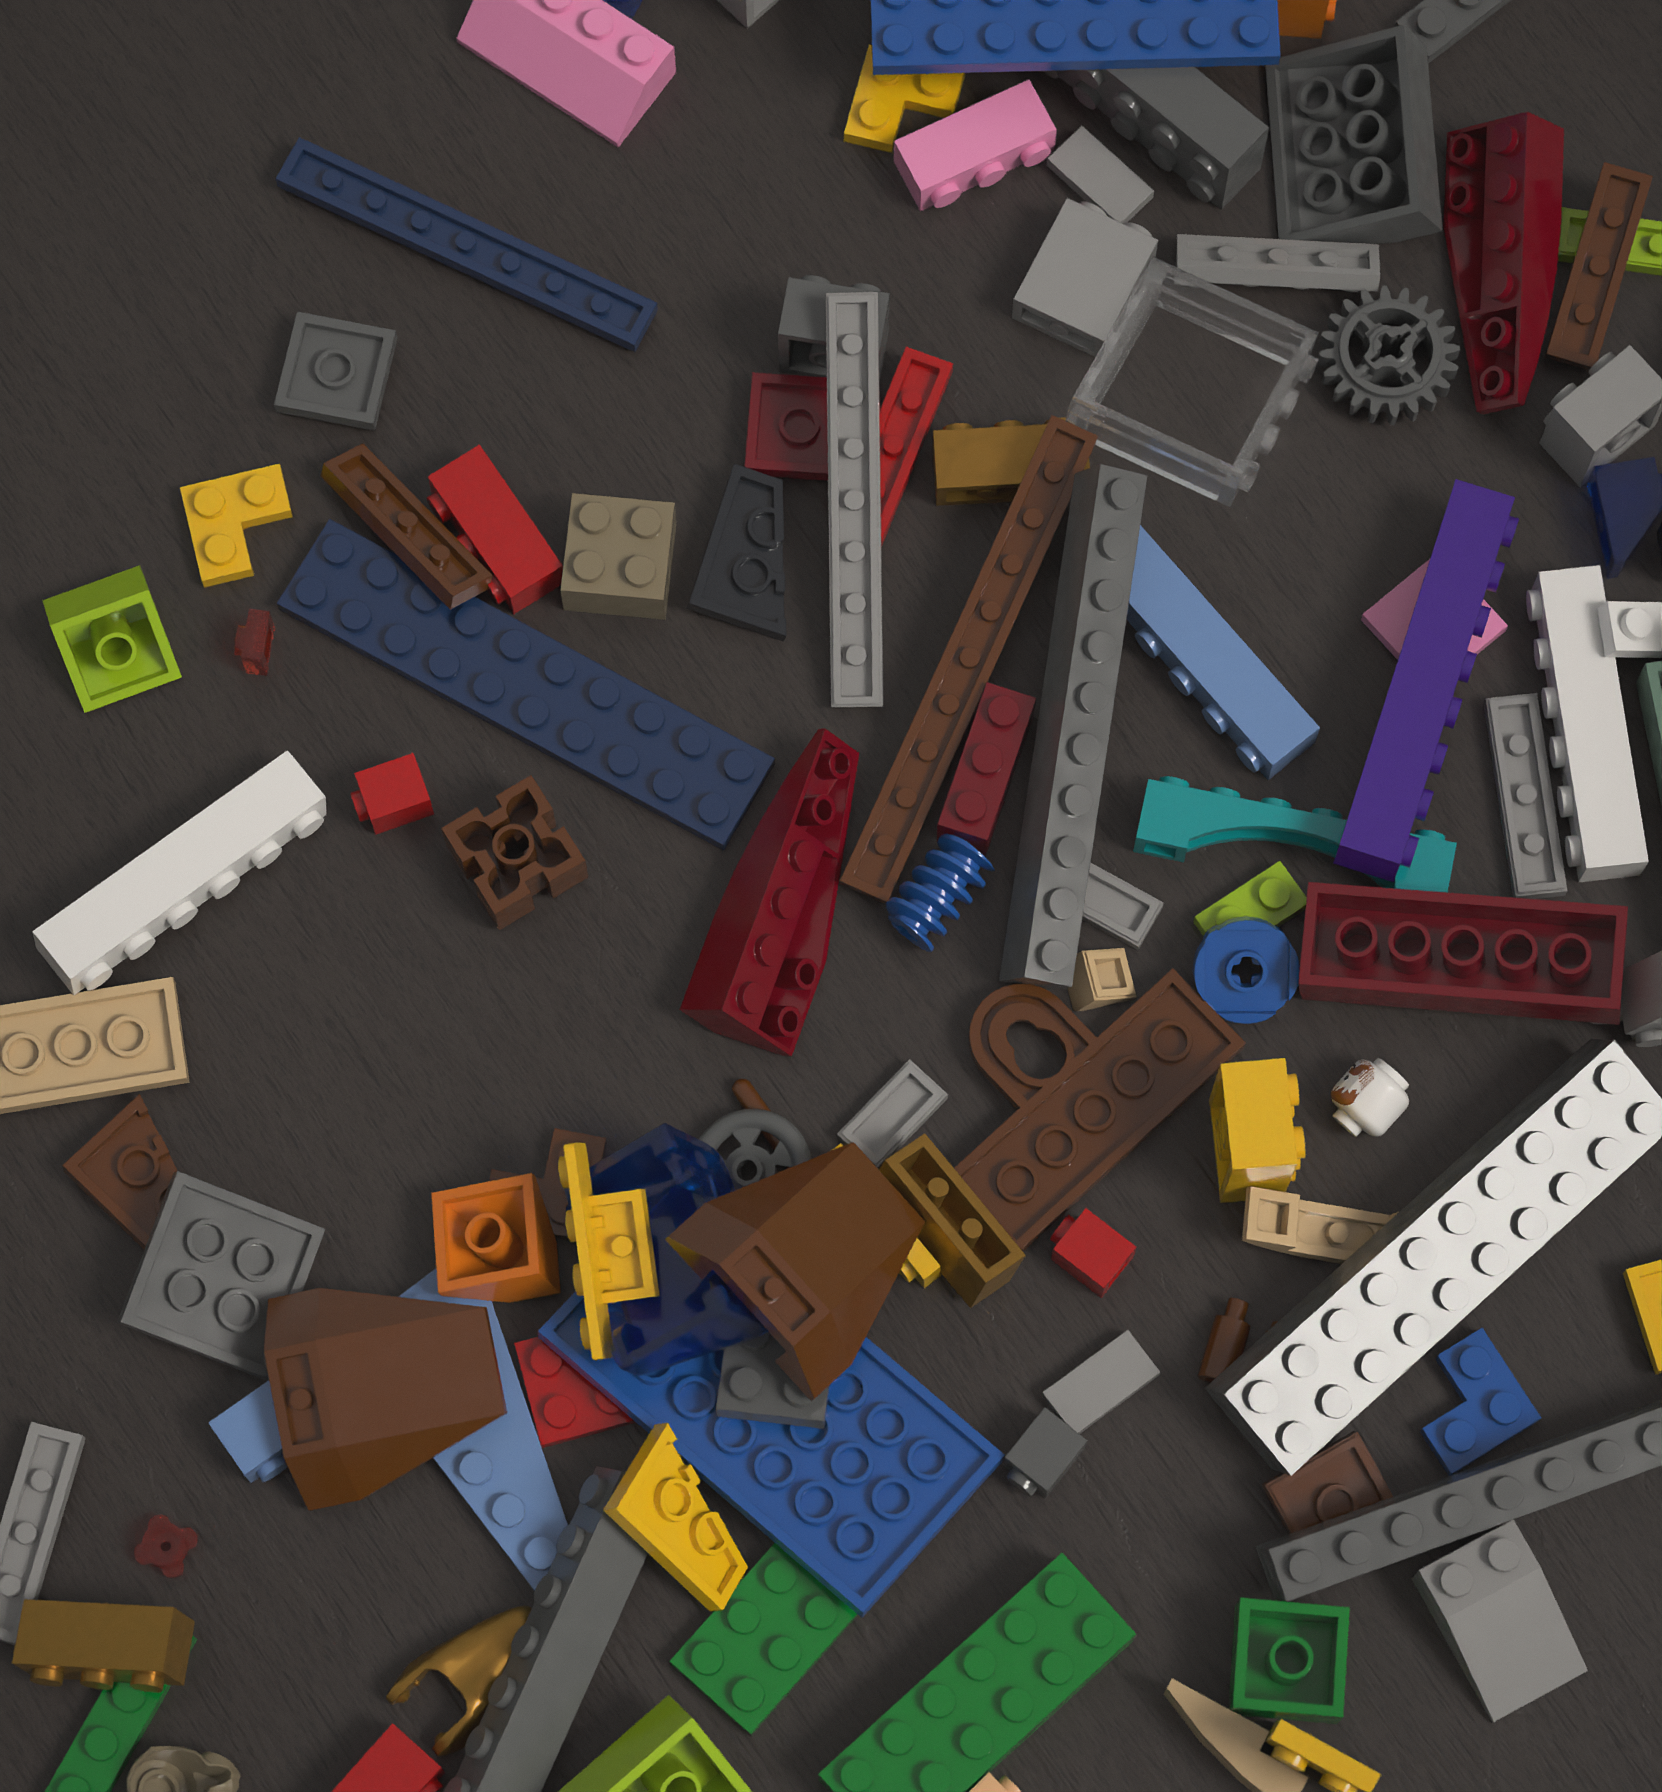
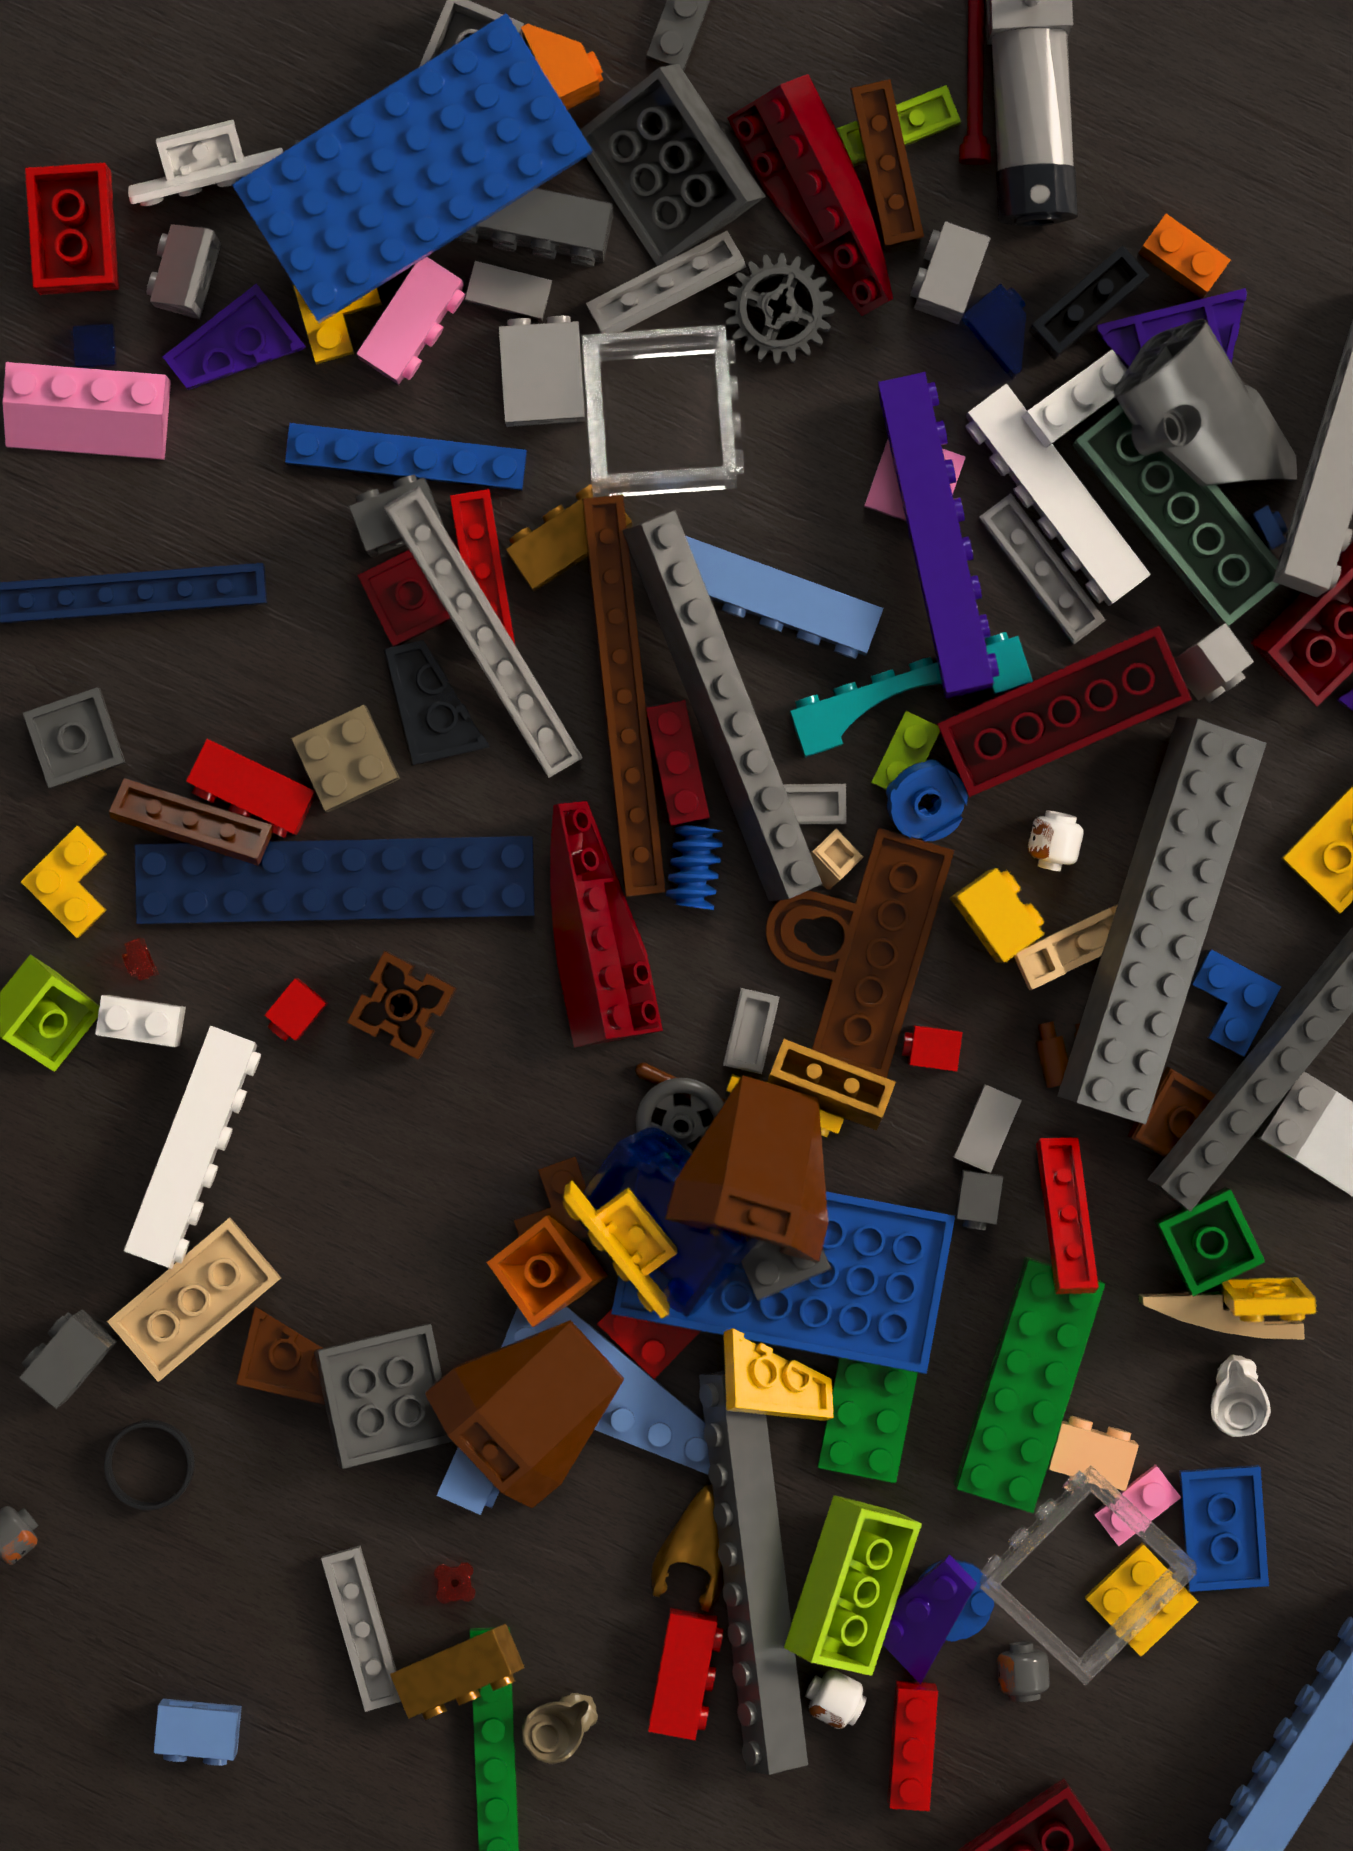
camera: 30 degrees left, 15 degrees up
(214, 706) = (140, 1020): none -> white brick
(769, 64) = (234, 340): none -> dark purple wing
(914, 305) = (406, 456): none -> blue plate
(1136, 1529) = (1067, 1215): none -> red plate

